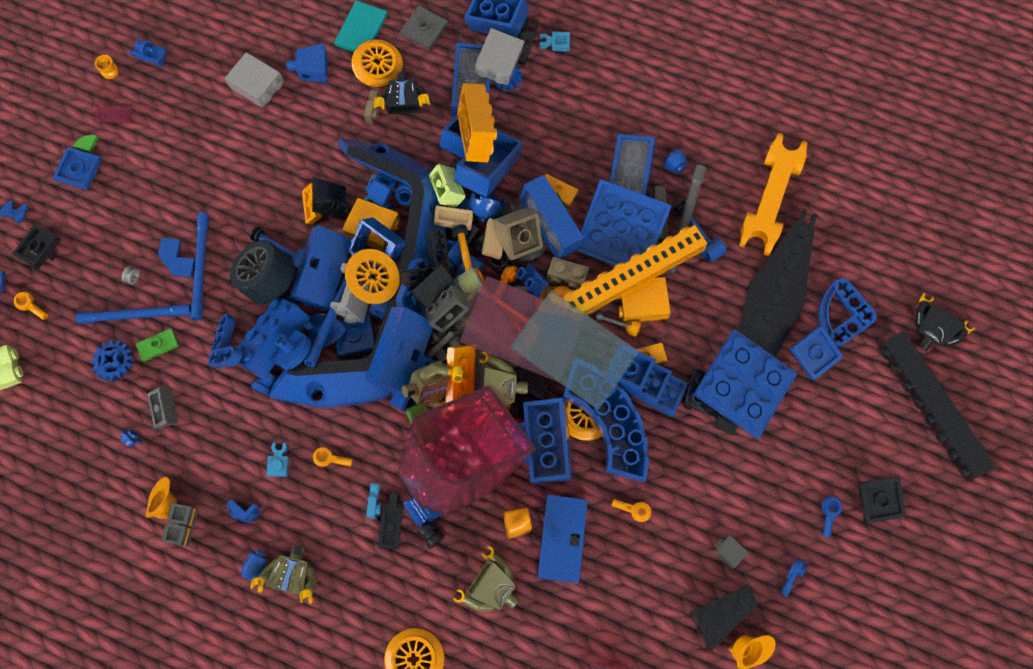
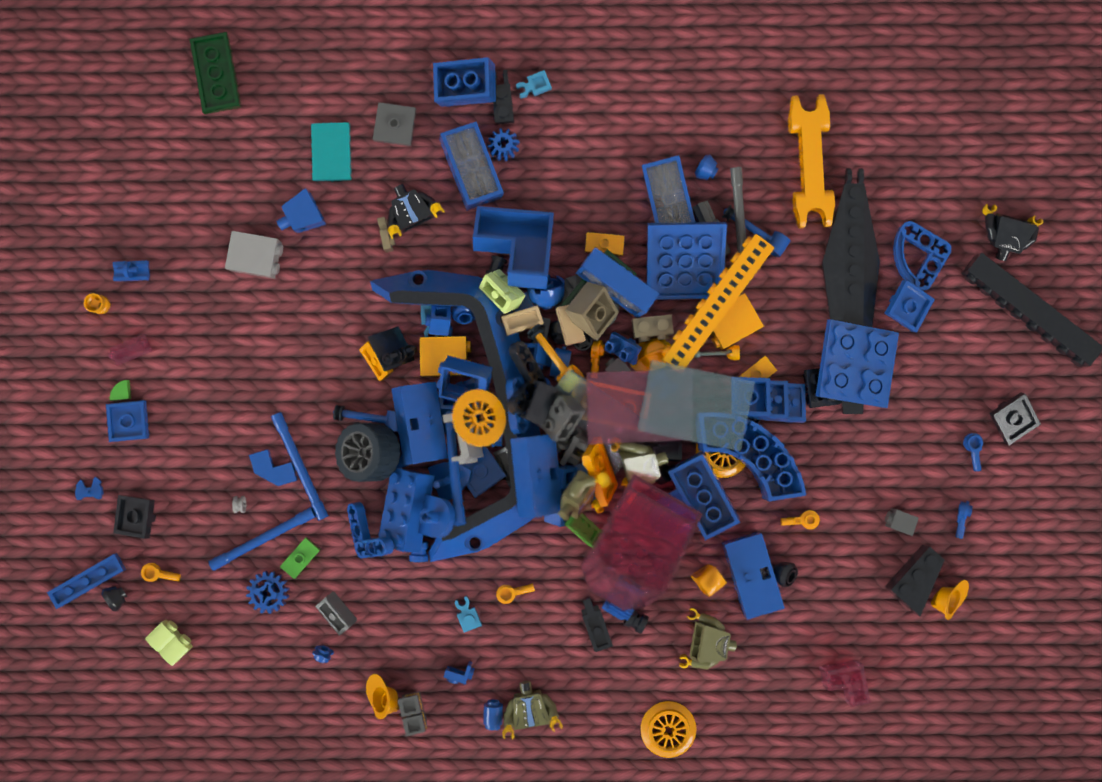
camera: 20 degrees left, 15 degrees up
(374, 506) = (574, 618): dark azure plate -> none
(376, 80) = (354, 200): light orange piece -> none
(476, 123) = (505, 219): light orange brick -> none
(499, 56) = (491, 133): light grey brick -> none
(595, 552) = (785, 573): none -> black cone

